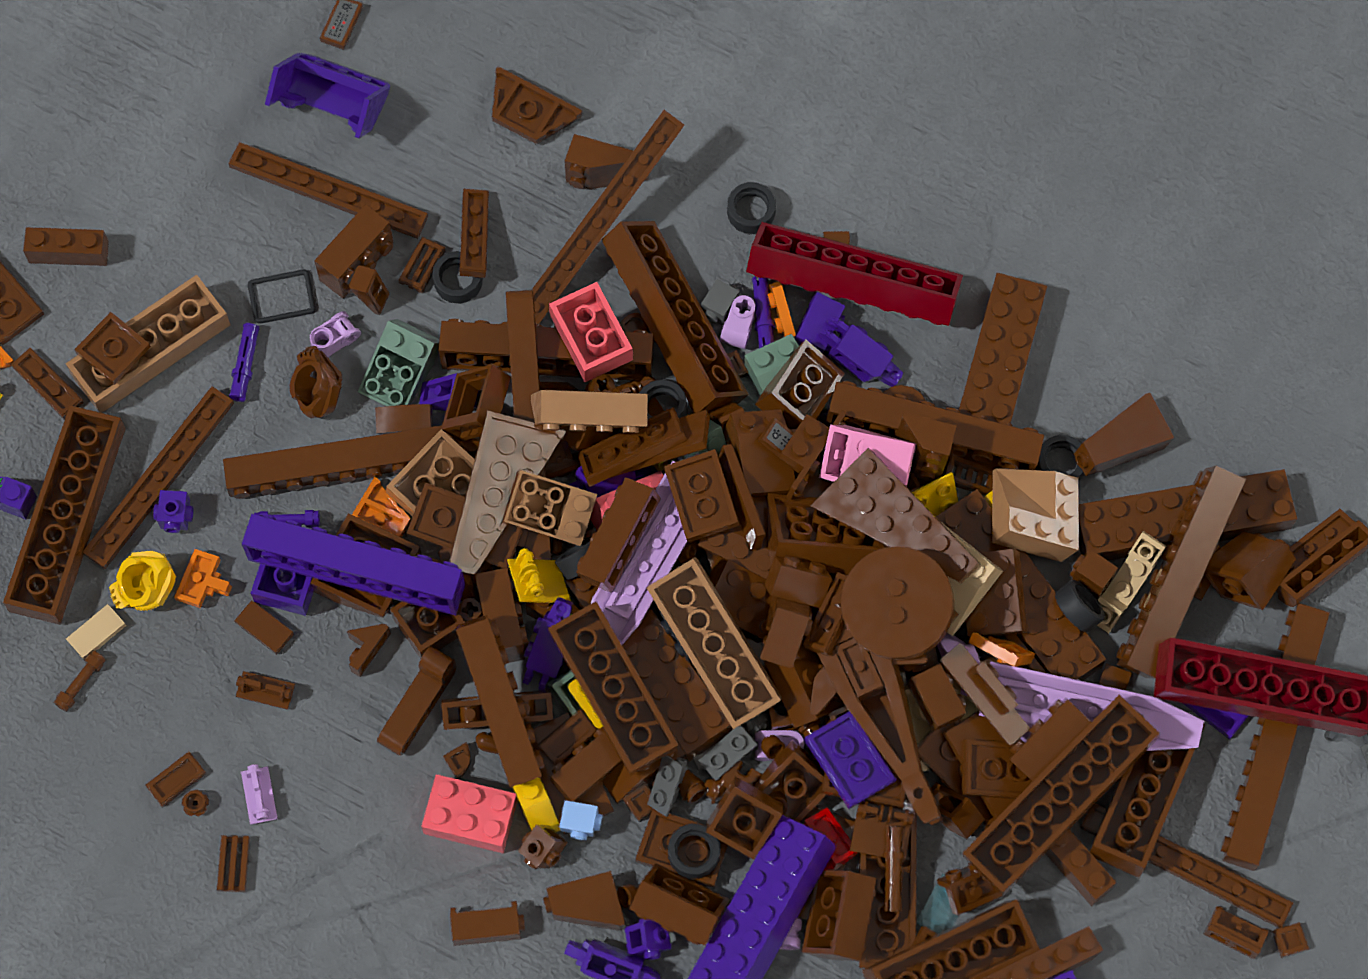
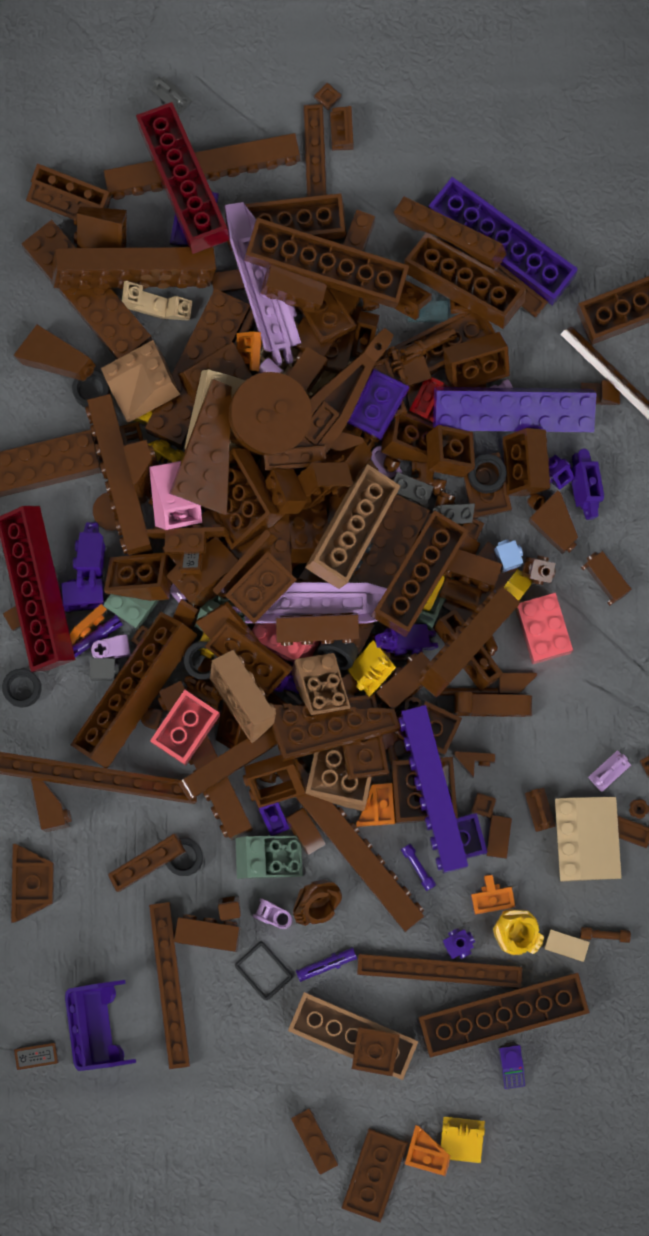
camera: 115 degrees left, 10 degrees up
(46, 382) = (417, 1091): reddish brown tile -> none
(197, 721) = (588, 838): none -> tan slope
(310, 631) = (483, 805): none -> reddish brown tile
(412, 284) = (181, 888): reddish brown tile -> none
(429, 746) = (515, 682): none -> reddish brown tile
(448, 691) = (450, 691): none -> reddish brown bar
(458, 760) = (511, 658): reddish brown tile -> none
(986, 692) = (288, 339): reddish brown bracket -> none
(1079, 605) = (189, 321): black tyre -> none
(1094, 572) = (162, 326): reddish brown brick -> none

